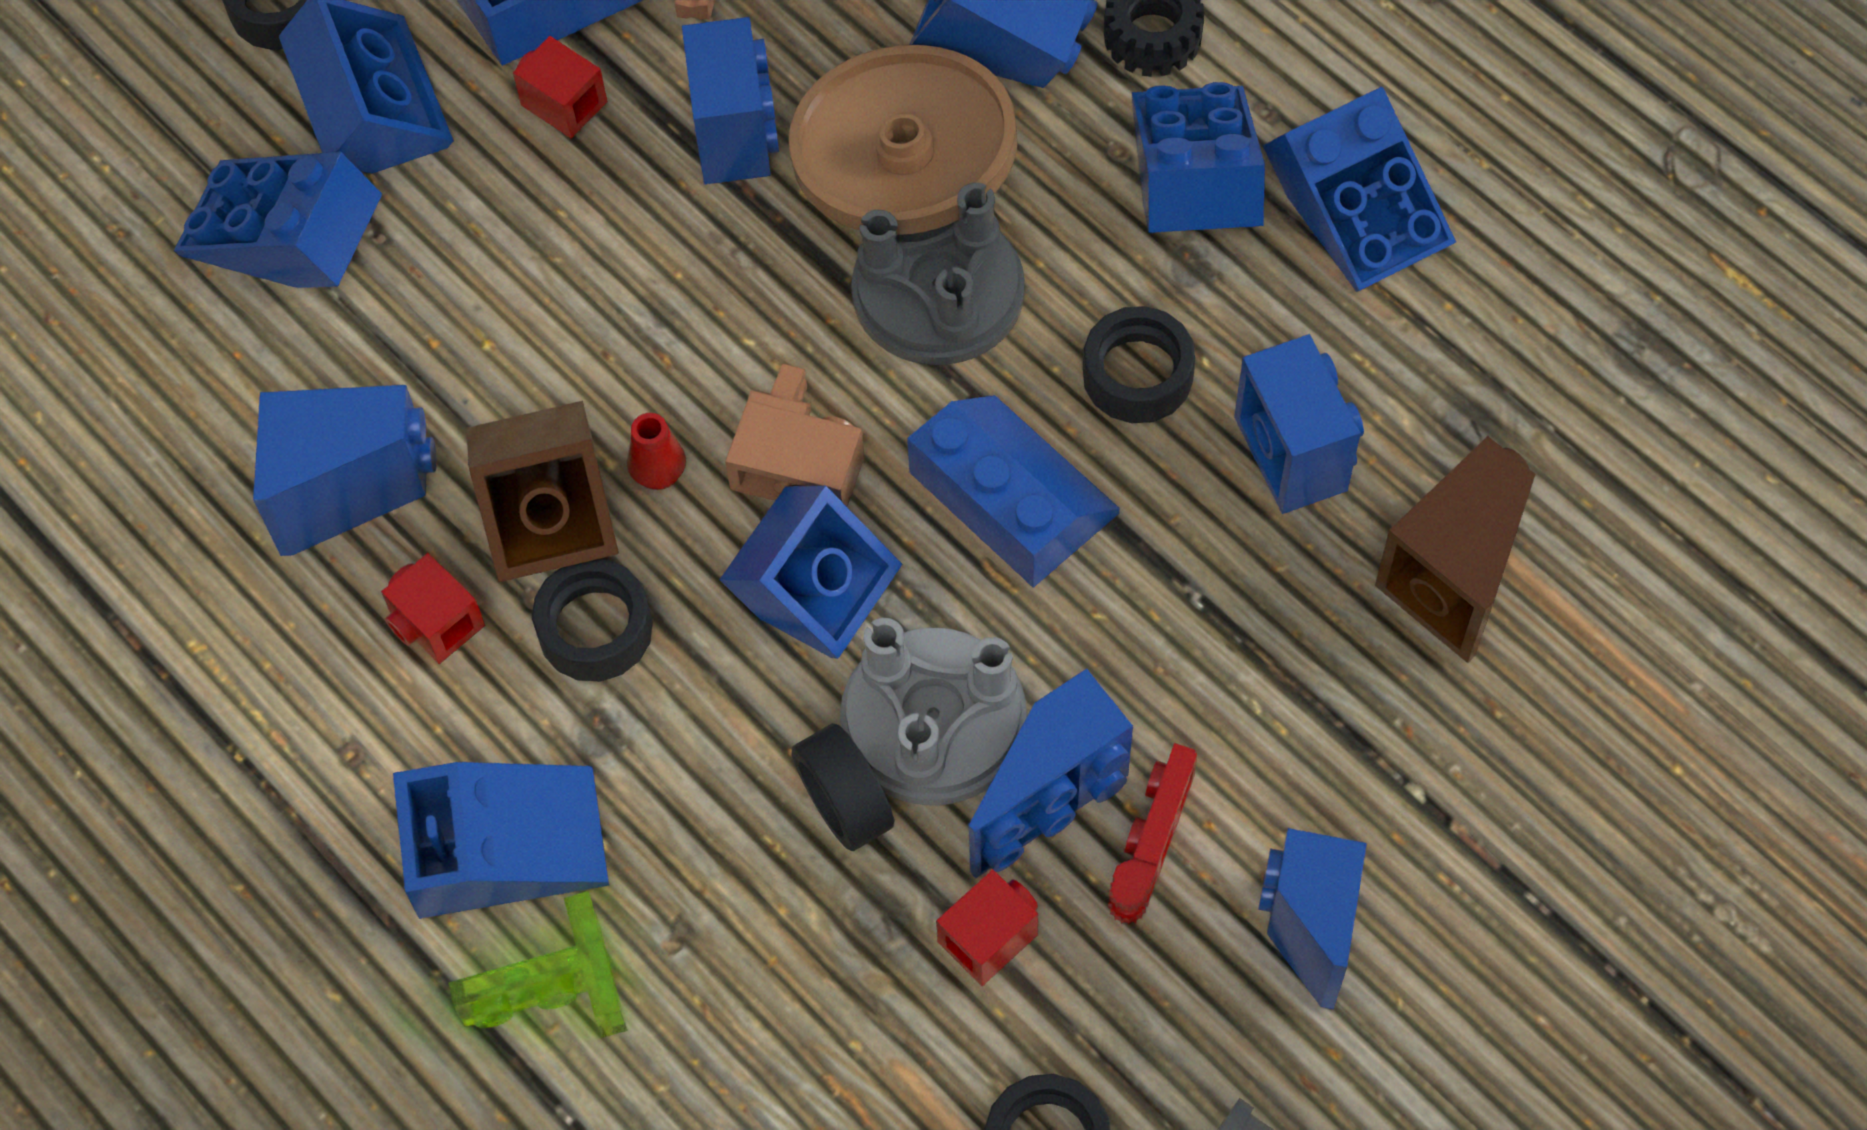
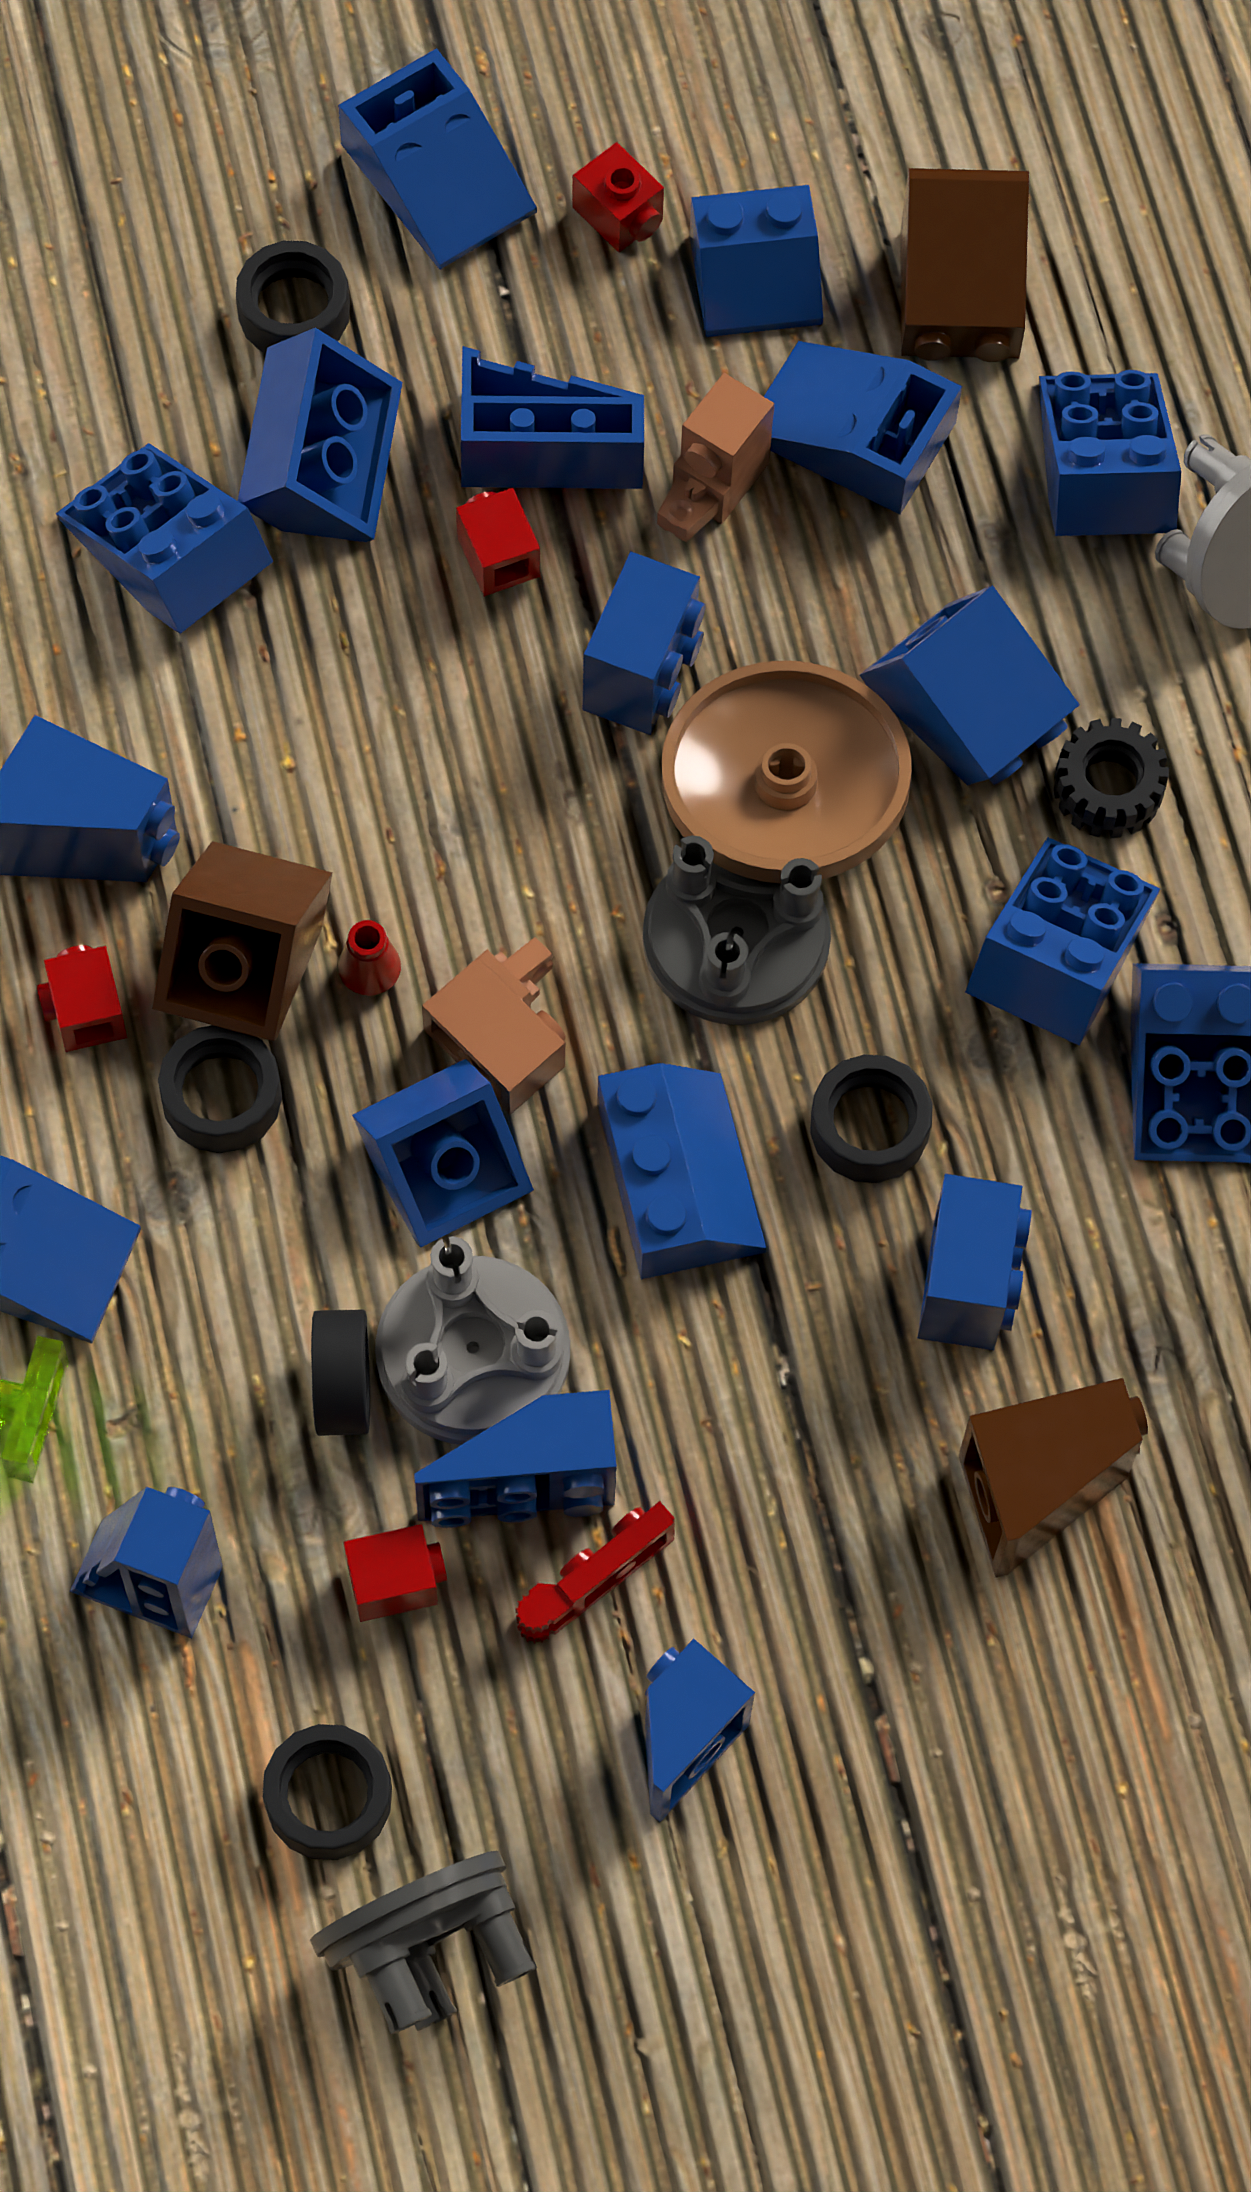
camera: 25 degrees right, 5 degrees up
(777, 1027) = (154, 1560): none -> blue wedge

